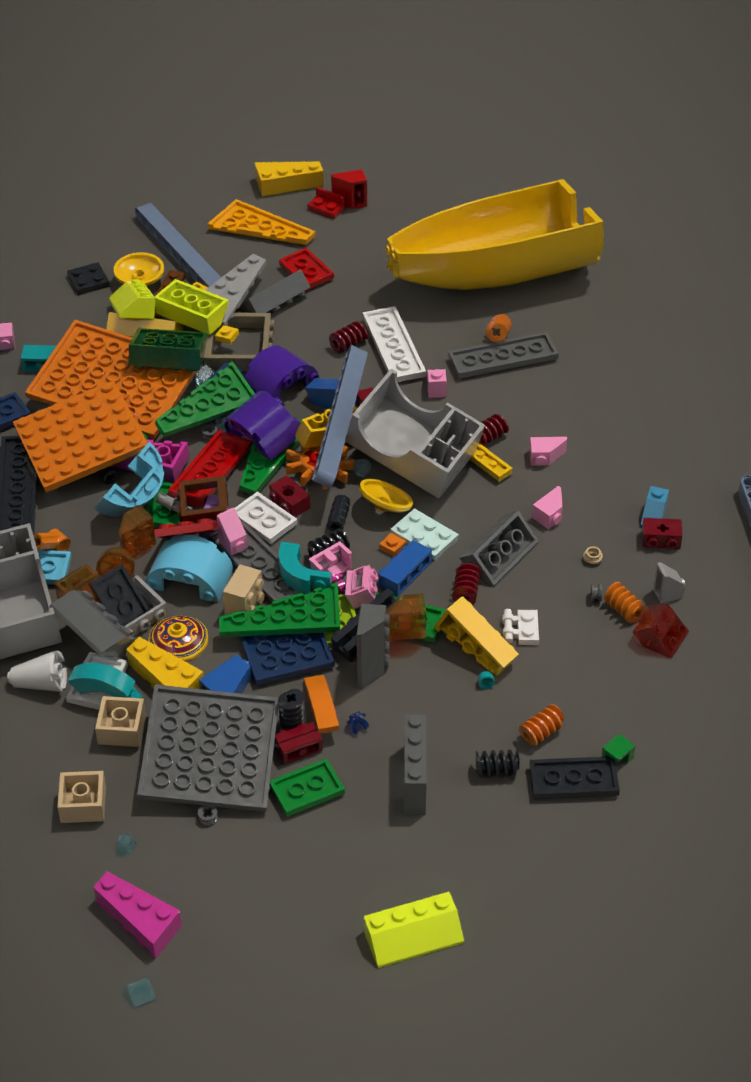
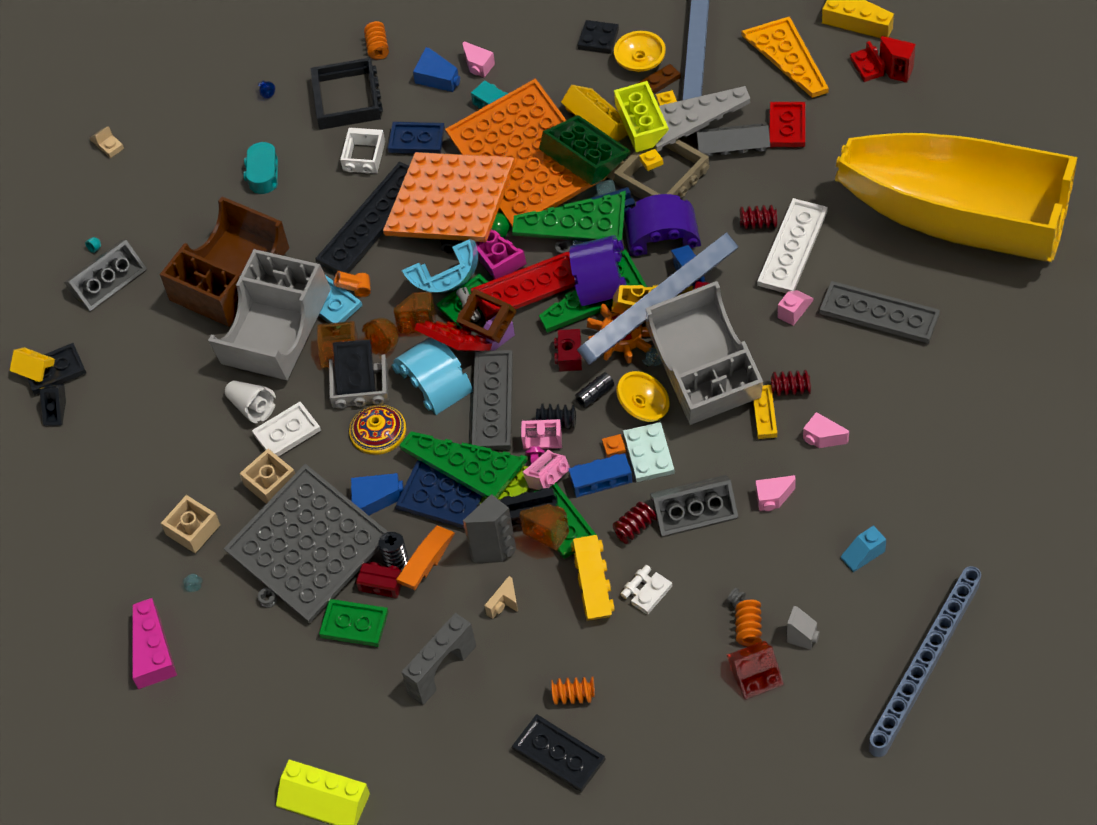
camera: 45 degrees right, 10 degrees up
(93, 623) = (311, 380): dark grey slope -> none
(104, 679) = (282, 438): teal arch -> none
(133, 300) = (600, 83): neon yellow slope -> none
(140, 992) = (105, 708): clear light blue slope -> none
(161, 667) = (336, 456): yellow wedge -> none
(231, 532) = (483, 359): bright pink slope -> none
(243, 590) = (449, 419): tan brick -> none
(265, 517) = (533, 357): white plate -> none
(298, 576) = (504, 417): teal arch -> none
(357, 718) = (440, 588): clear blue plate -> none
(418, 694) = (503, 596): none -> tan slope
(486, 680) = (571, 619): teal hinge -> none
(497, 763) = (507, 701): black piece -> none
(499, 321) = (895, 282): orange piece -> none
(593, 555) = (768, 555): tan plate -> none
(619, 749) = (612, 752): green panel -> none
(662, 533) = (847, 577): dark red brick -> none

